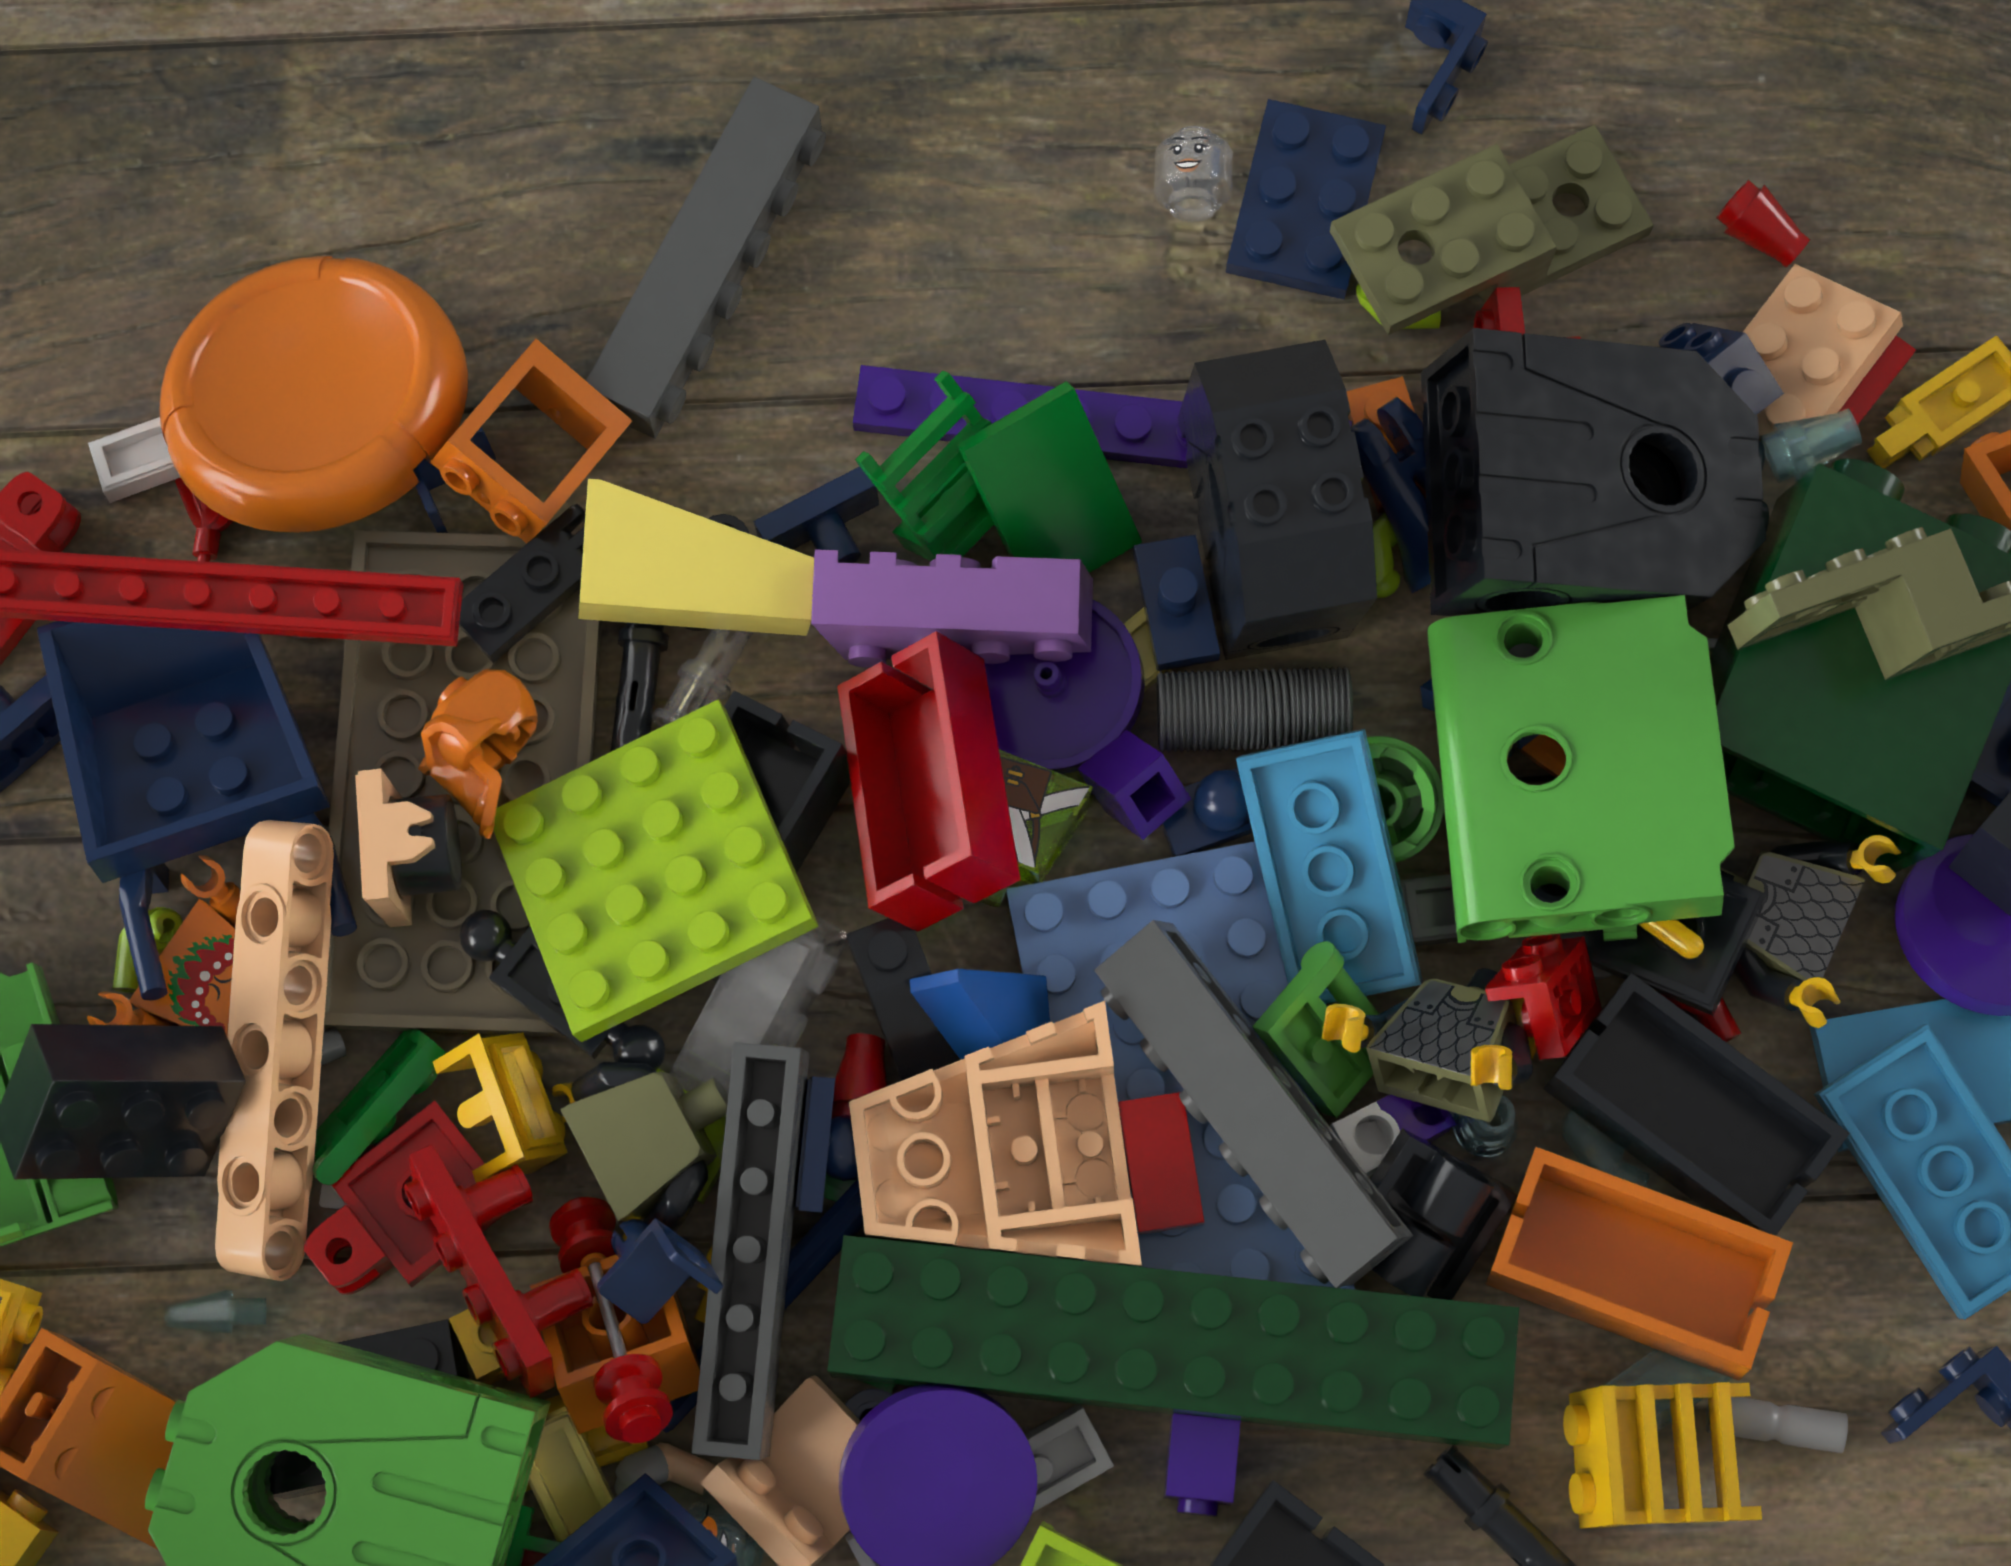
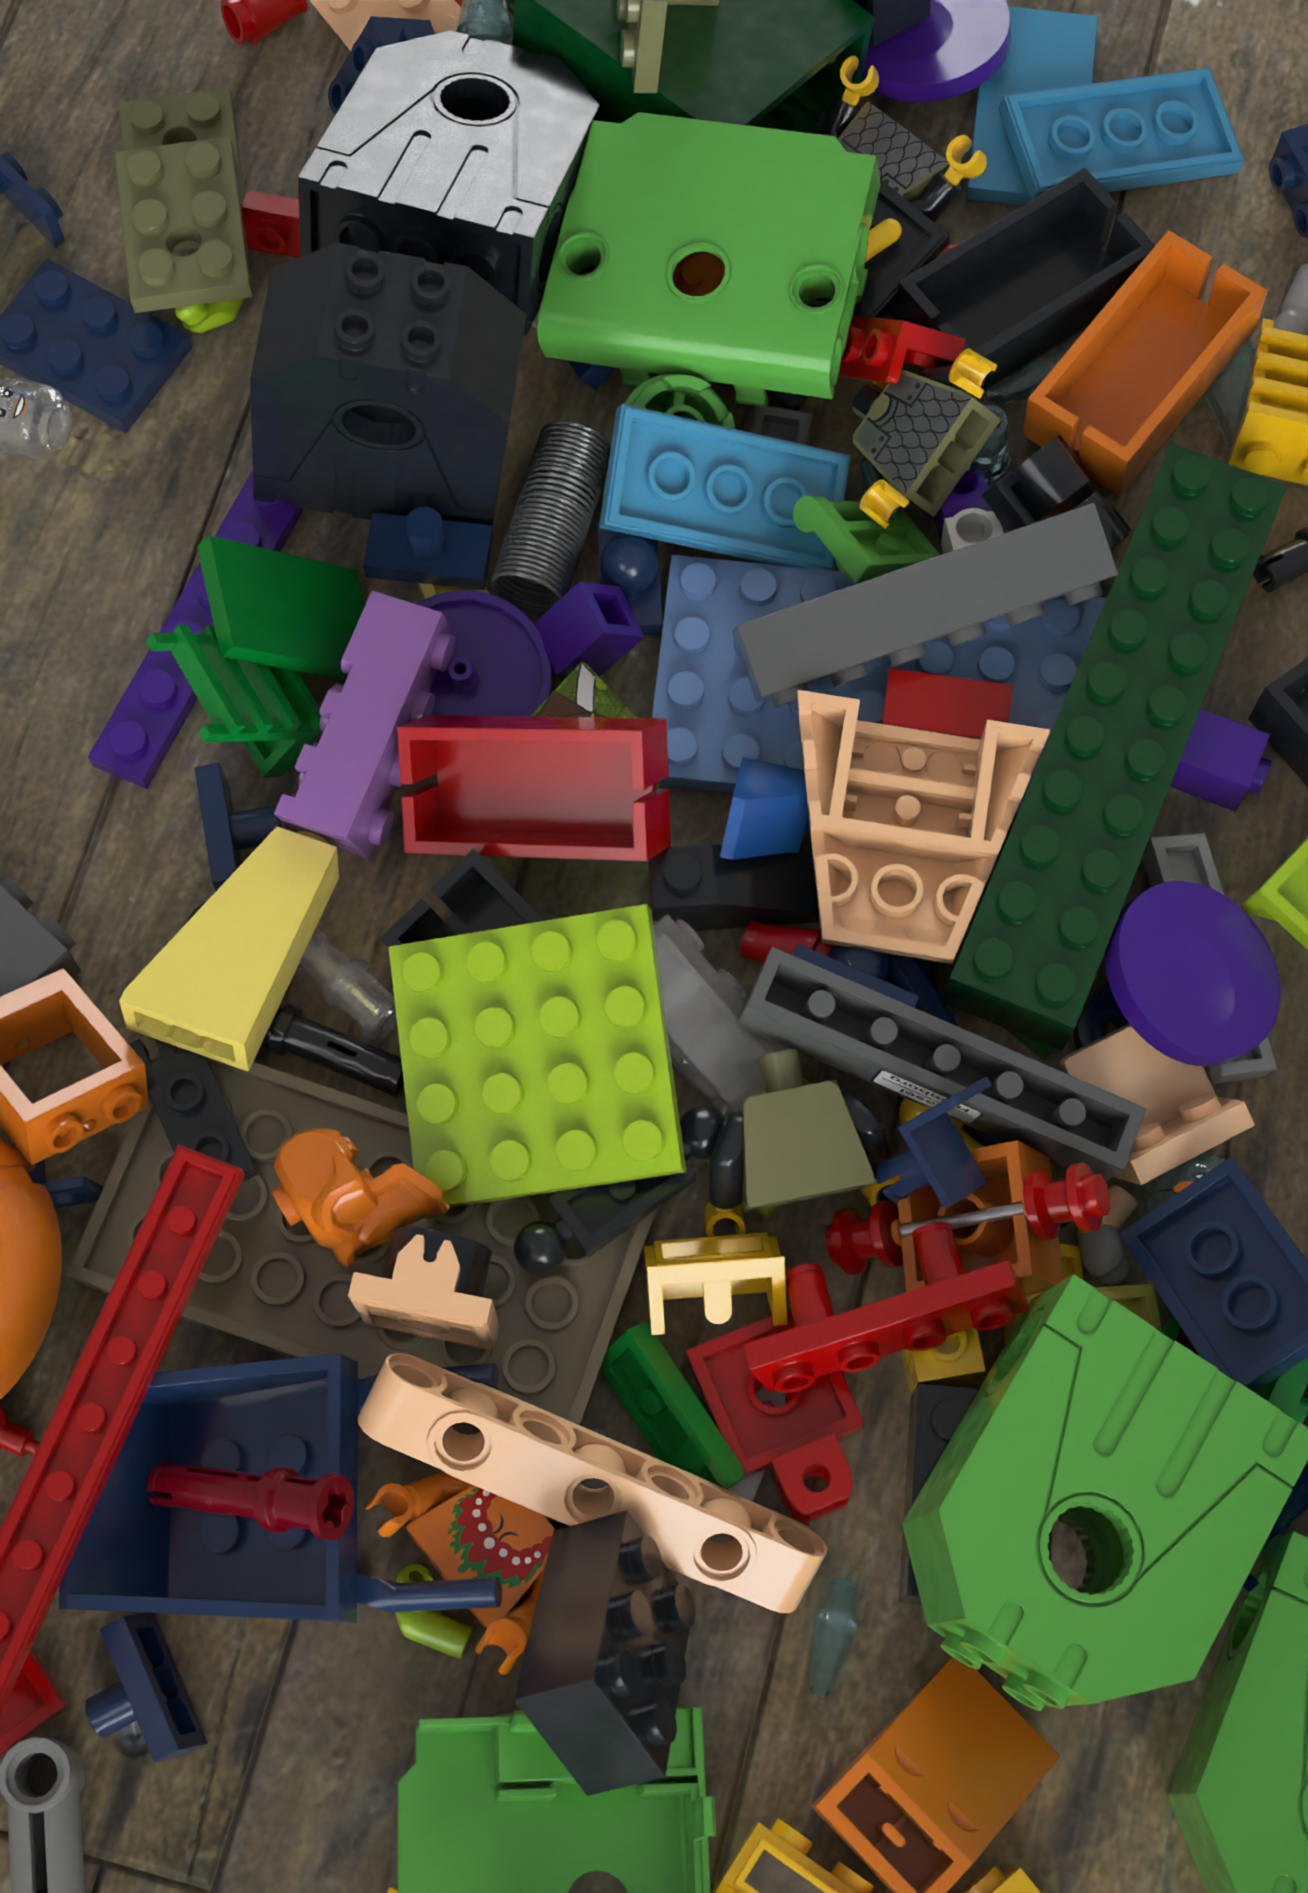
camera: 75 degrees left, 5 degrees down
(173, 773) = (274, 1499): none -> dark red pin

